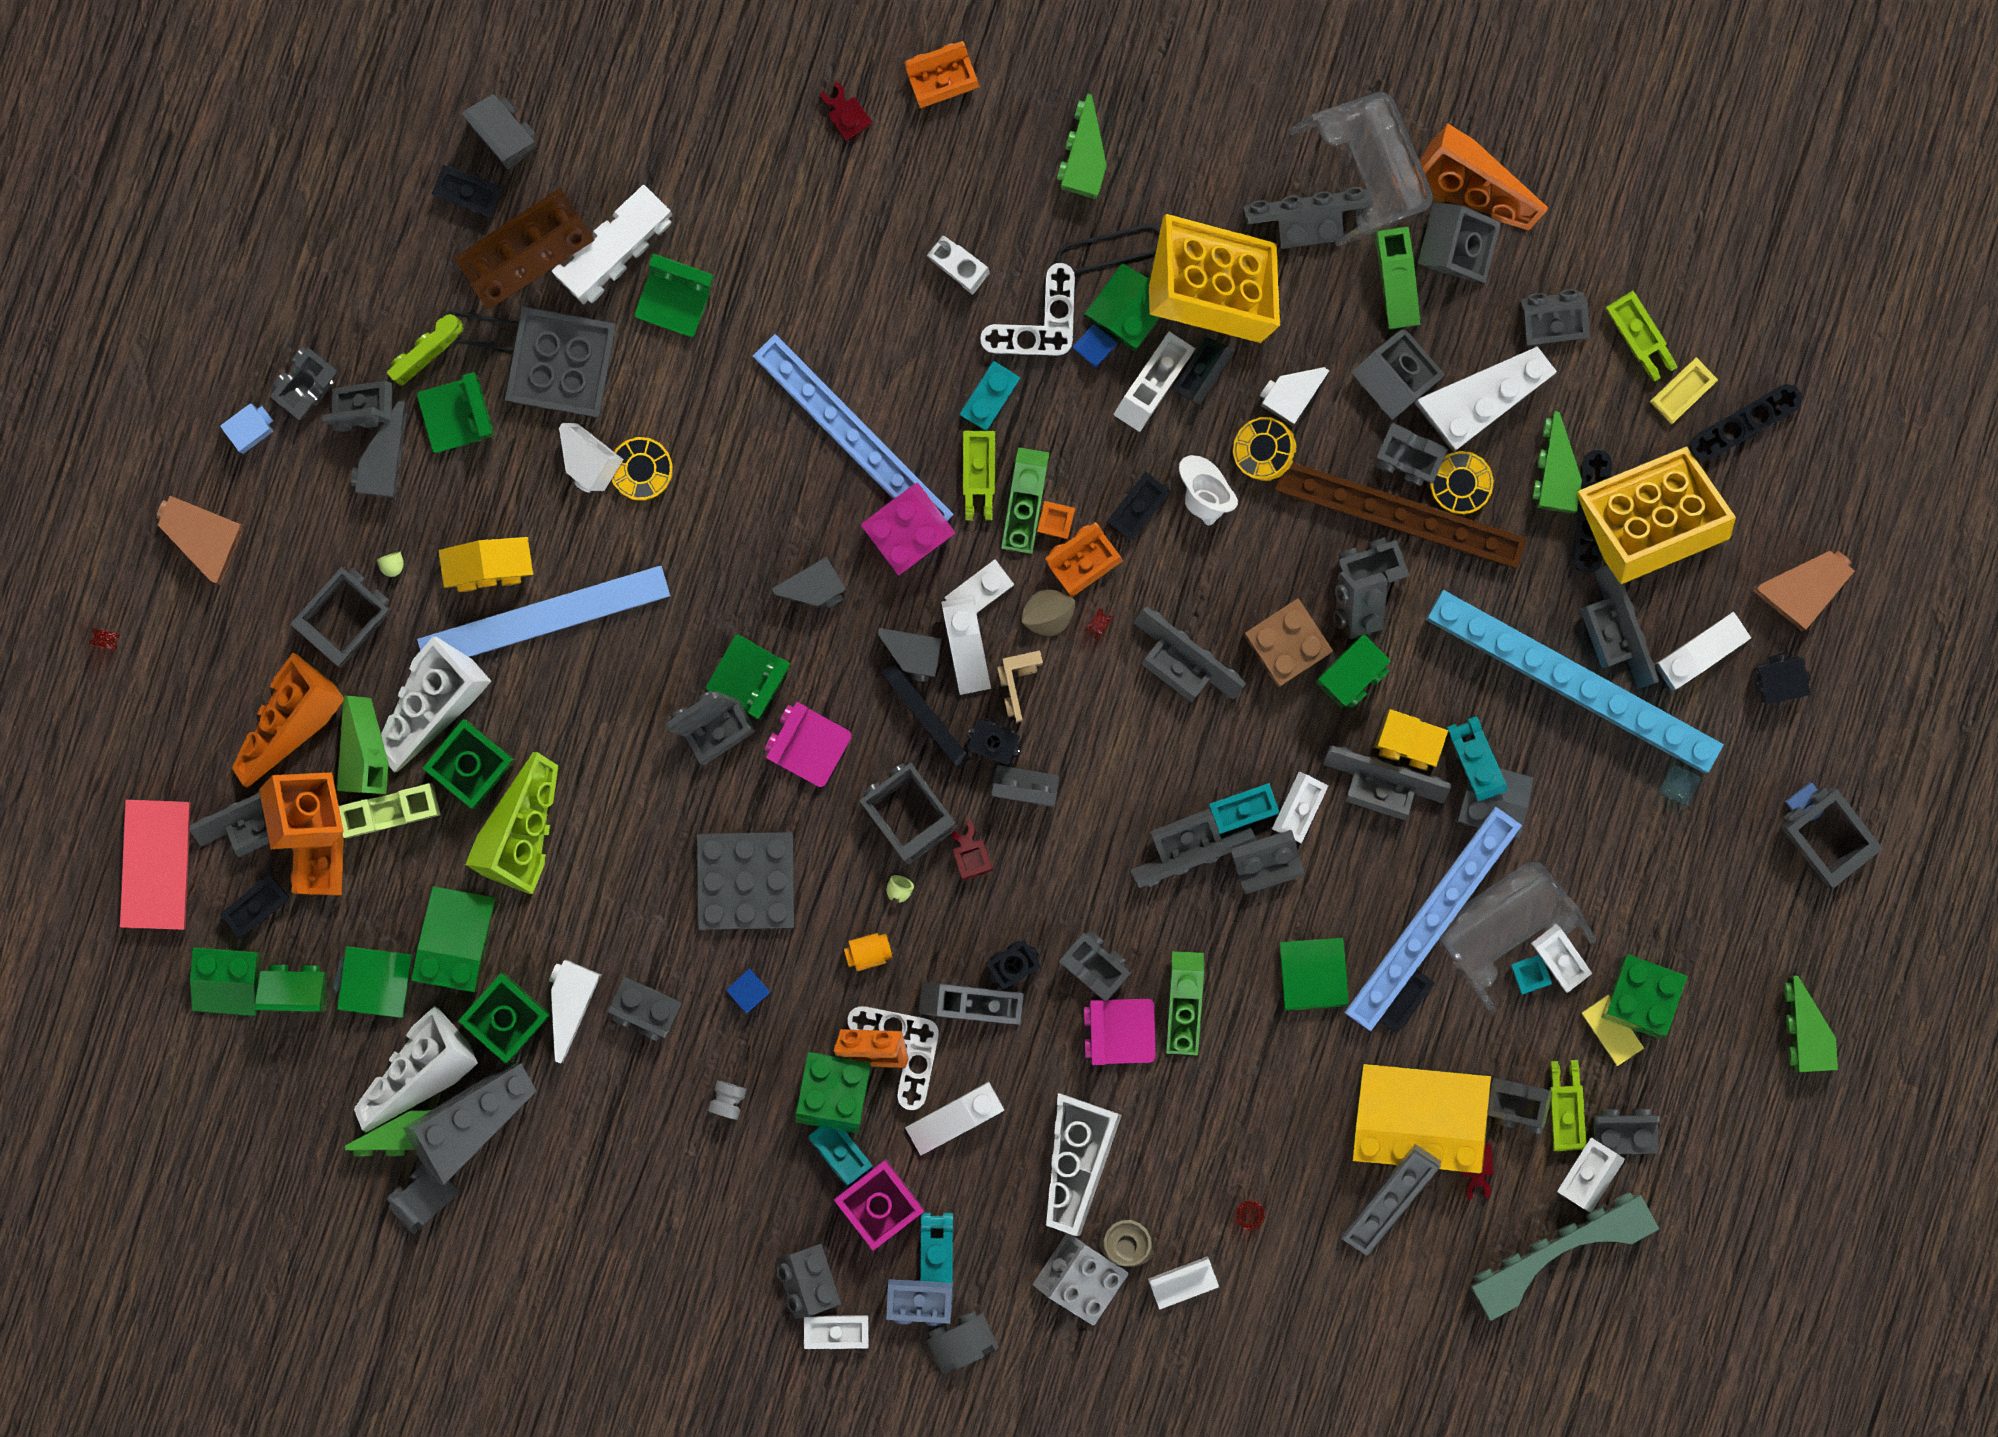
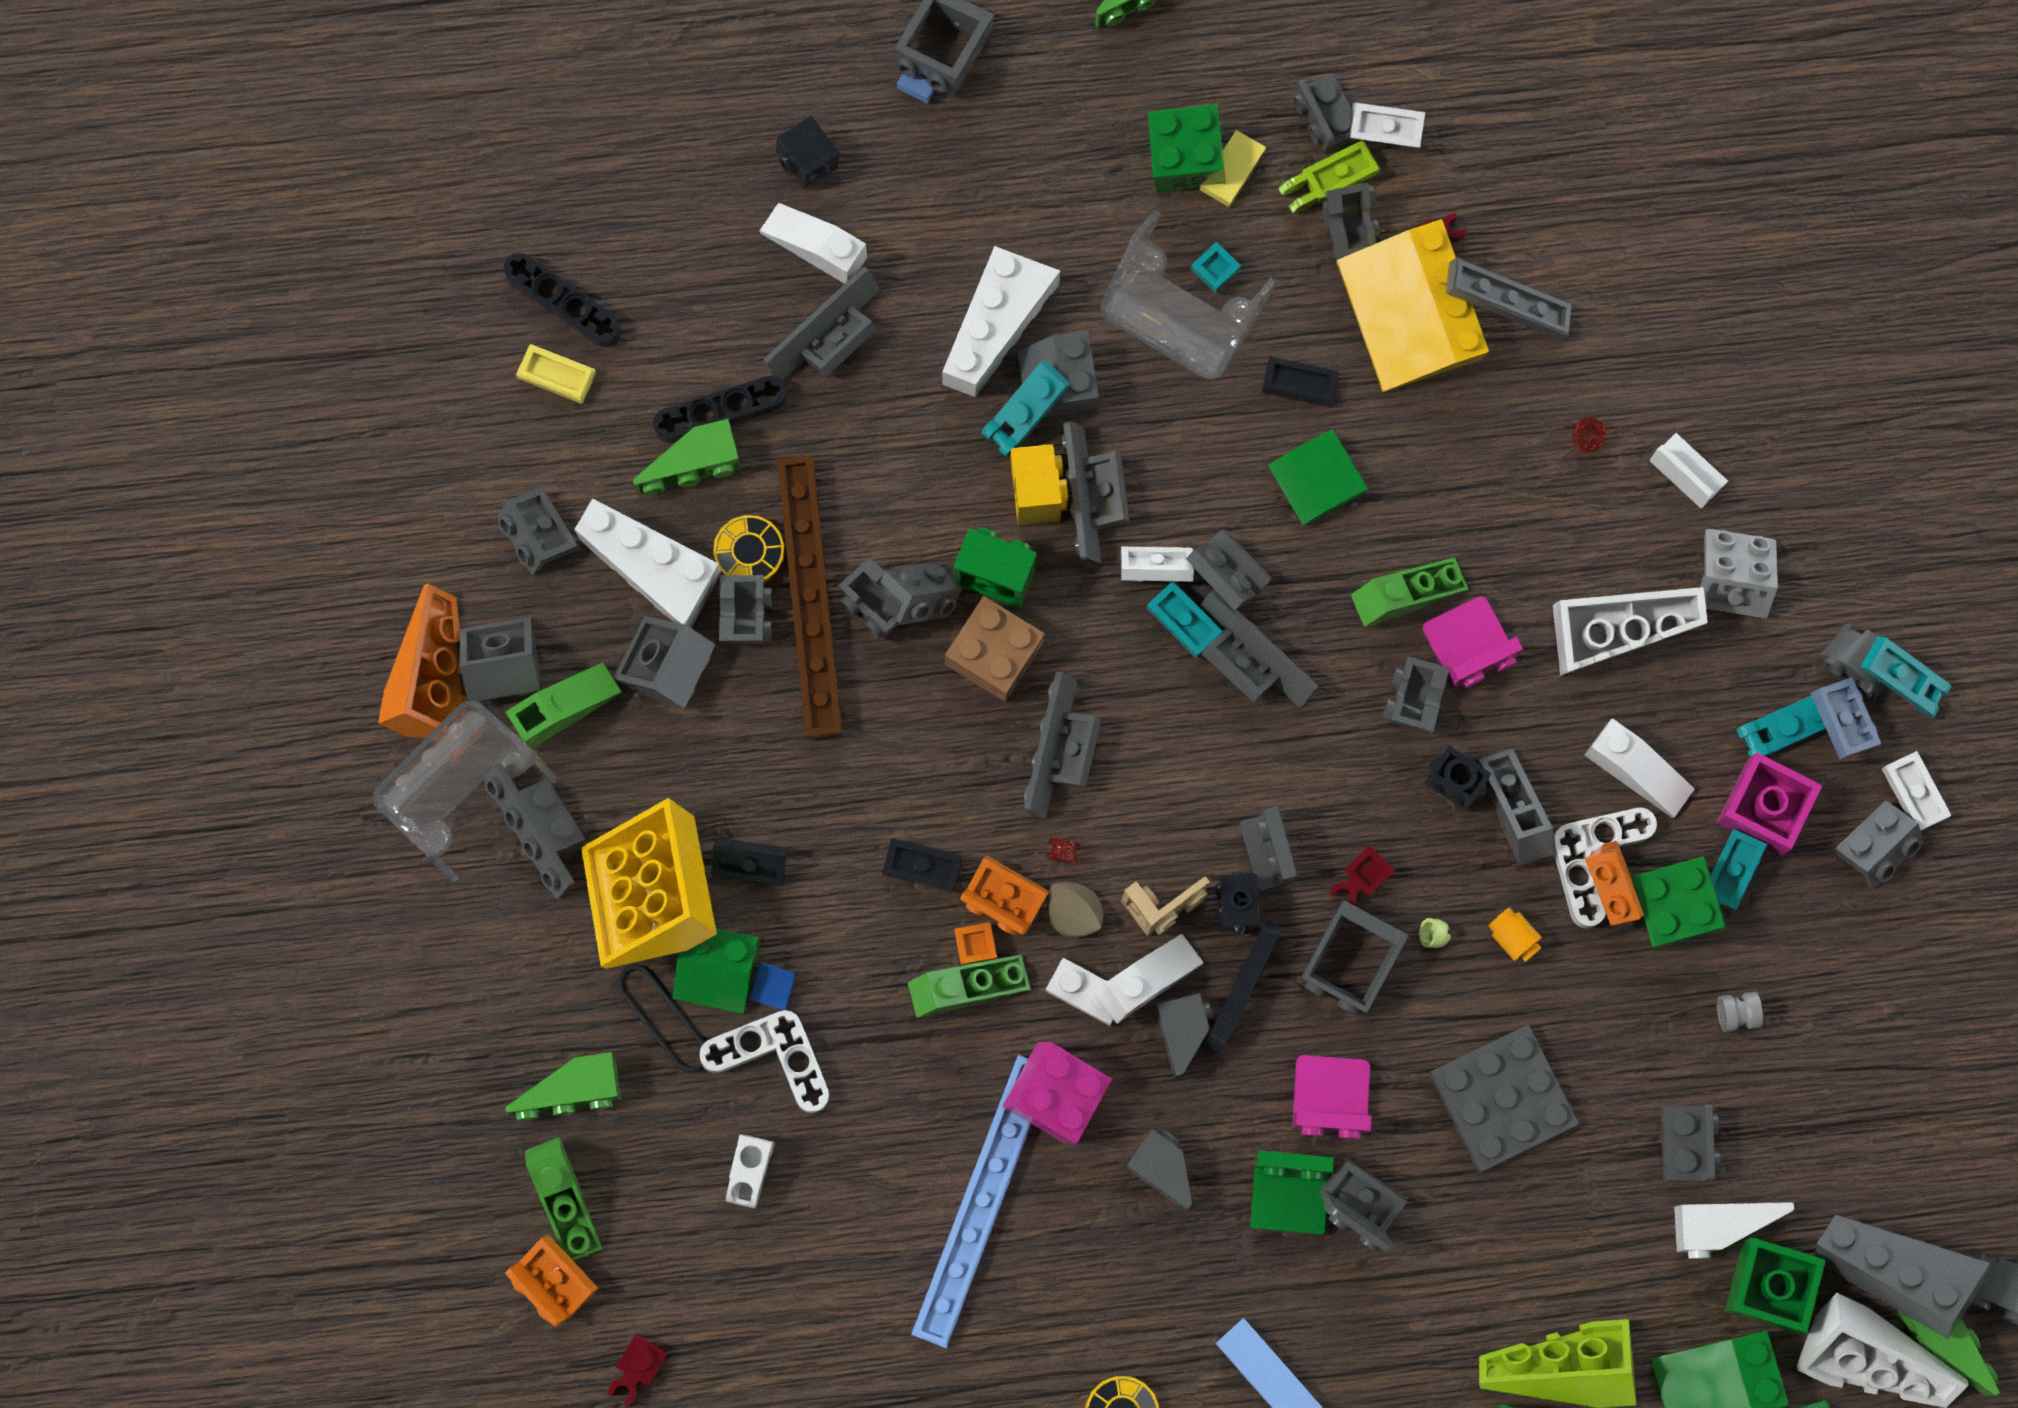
camera: 115 degrees left, 10 degrees down
(748, 991) = (1616, 1041): blue slope -> none
(931, 1367) = (1905, 676): none -> teal plate
(978, 470) = (960, 1048): lime hinge -> none
(989, 396) = (875, 1073): teal plate -> none
(1002, 110) = (562, 1198): none -> bright green slope
(1127, 1244) = (1681, 541): dark tan piece -> none
(1154, 381) = (784, 906): white slope -> none
(1206, 490) = (876, 799): white piece -> none
(1264, 448) = (803, 761): tile -> none
(1292, 393) = (733, 758): white slope -> none
(1433, 918) = (1208, 380): light blue tile -> none
(1505, 1287) = (1533, 157): sand green arch -> none
(1561, 958) = (1186, 242): white plate -> none
(1572, 777) = (1001, 309): none -> white wedge
(1574, 682) = (902, 352): medium azure brick -> none
(1640, 333) = (515, 439): lime hinge -> none
(1655, 515) = (696, 341): yellow slope -> none
(1679, 784) = (957, 208): clear light blue plate -> none
(1807, 588) = (704, 168): nougat slope -> none

